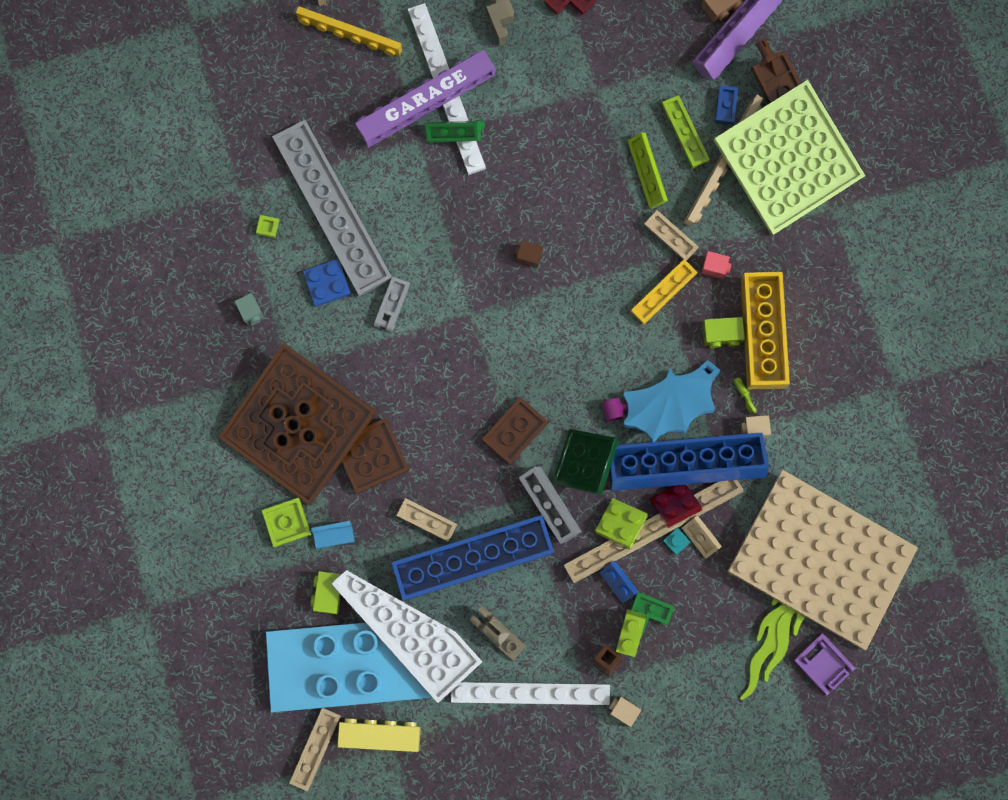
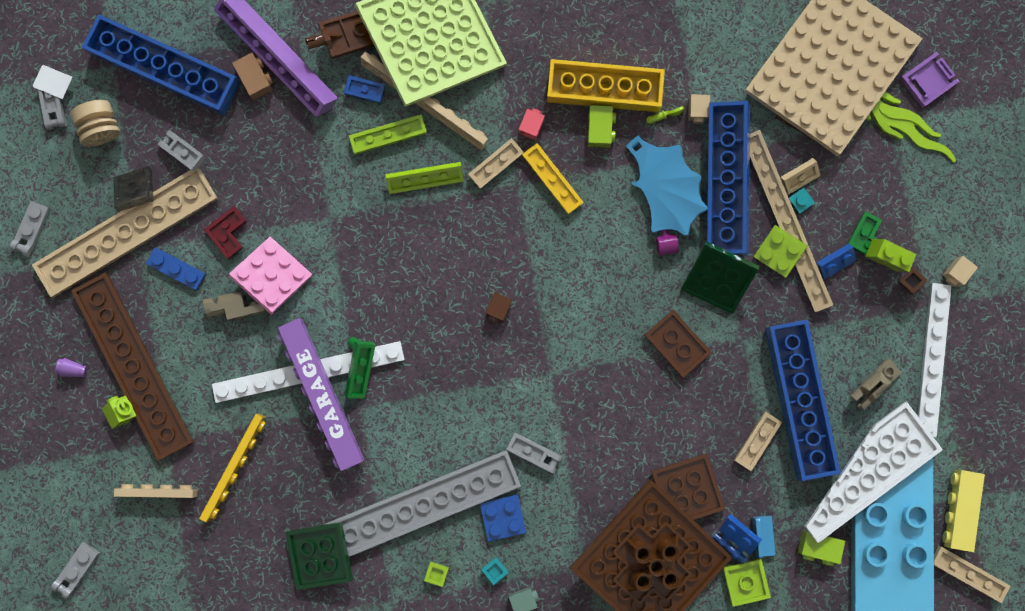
camera: 85 degrees left, 5 degrees up
(274, 117) = (319, 556): none -> dark green plate
(275, 280) = (494, 570): none -> teal plate
(330, 509) = (738, 534): none -> blue plate
(533, 40) = (270, 275): none -> bright pink plate
(550, 504) = (757, 317): light grey brick -> none
(675, 504) = (769, 196): dark red plate -> none

